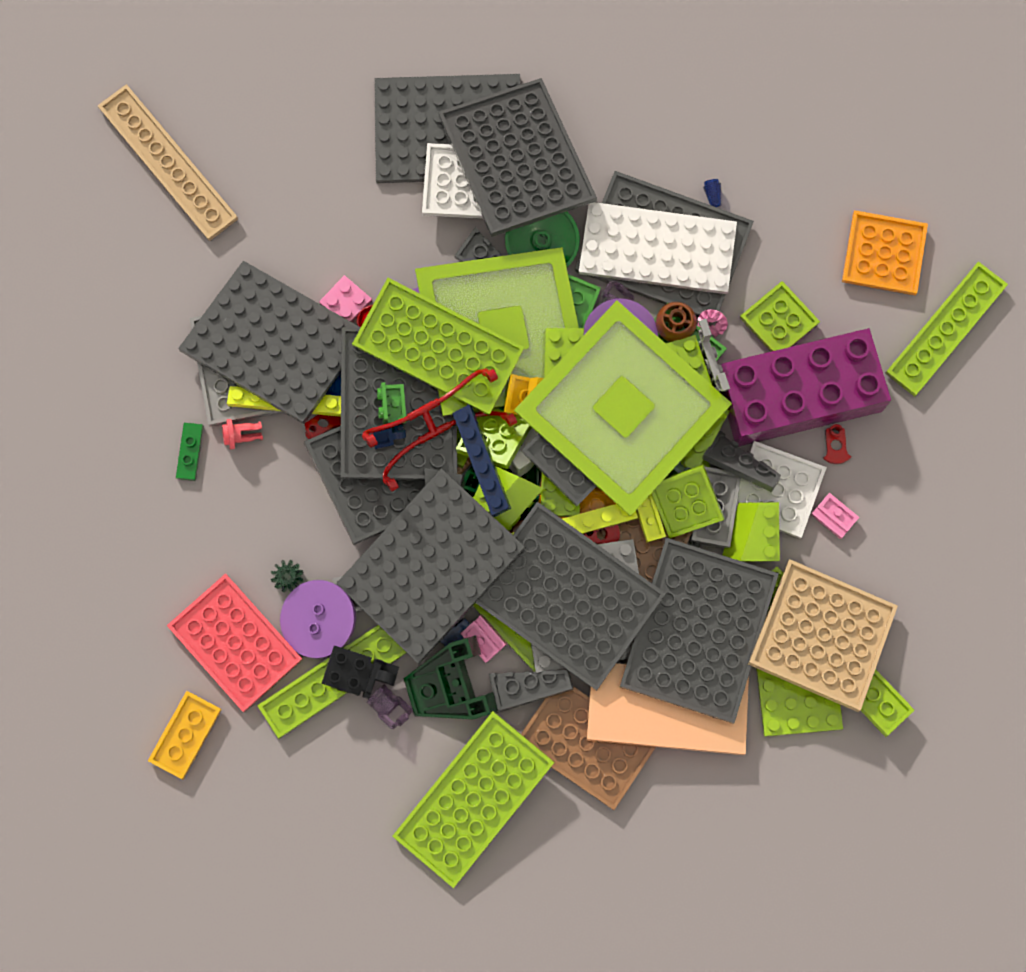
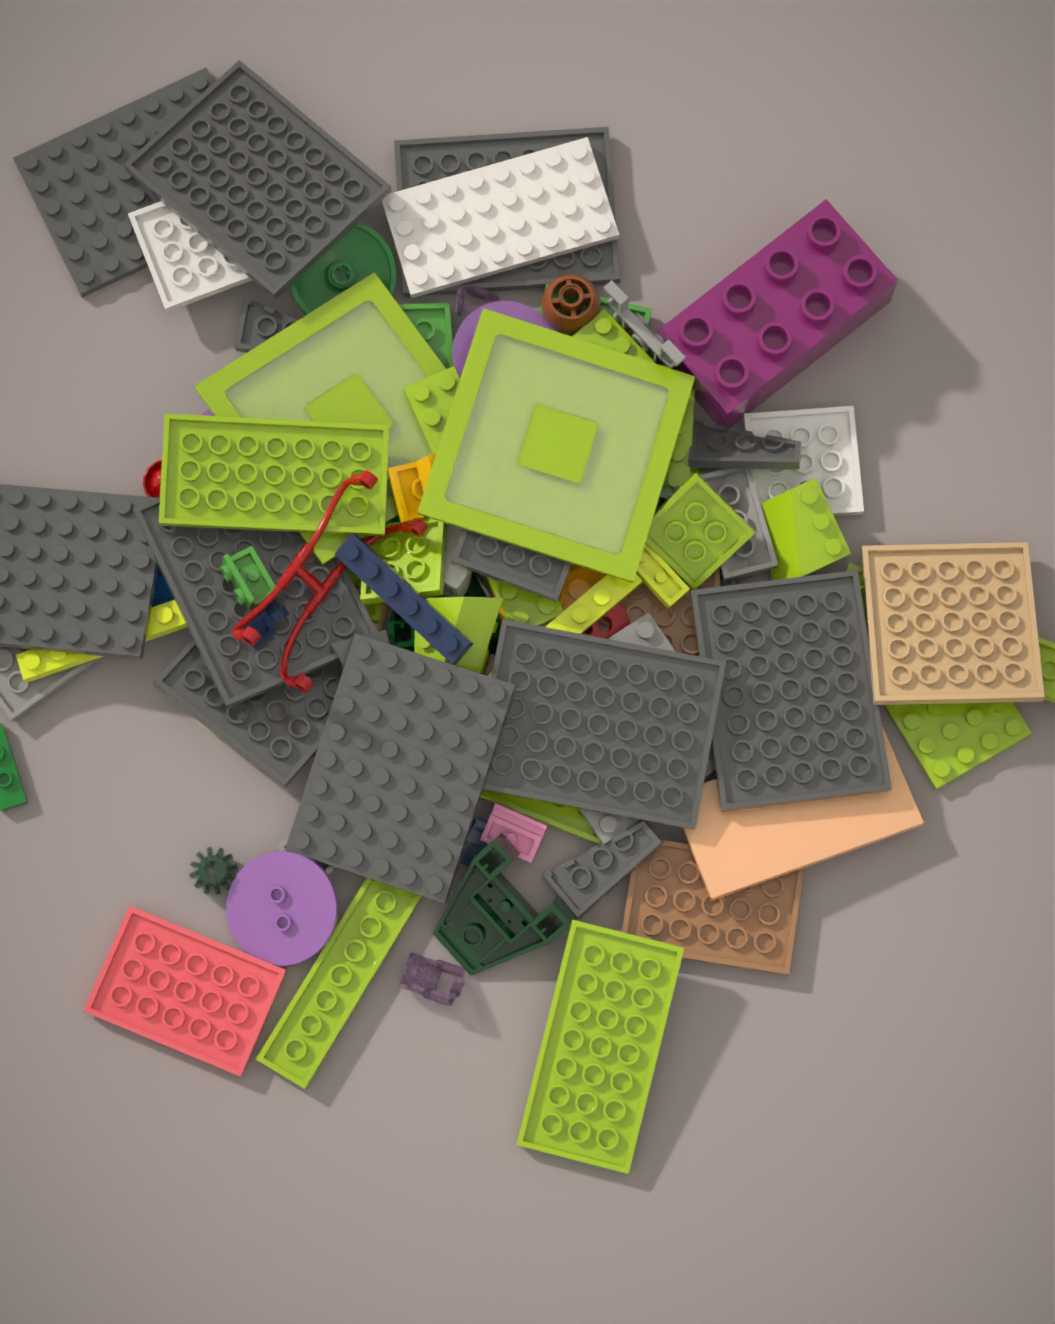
camera: 25 degrees left, 0 degrees up
(184, 735) = (177, 1143): yellow plate -> none
(233, 435) = (49, 715): coral piece -> none
(312, 425) = (153, 657): red piece -> none
(346, 299) = (116, 469): bright pink plate -> none
(356, 673) = (366, 955): black plate -> none
(713, 192) = (537, 112): clear blue cone -> none
(713, 316) = (616, 274): bright pink gear -> none
(779, 318) = (702, 240): lime plate -> none
(835, 516) = (893, 463): bright pink plate -> none
(836, 456) = (855, 387): red piece -> none
(884, 253) = (797, 93): light orange plate -> none
(946, 329) = (922, 157): lime plate -> none

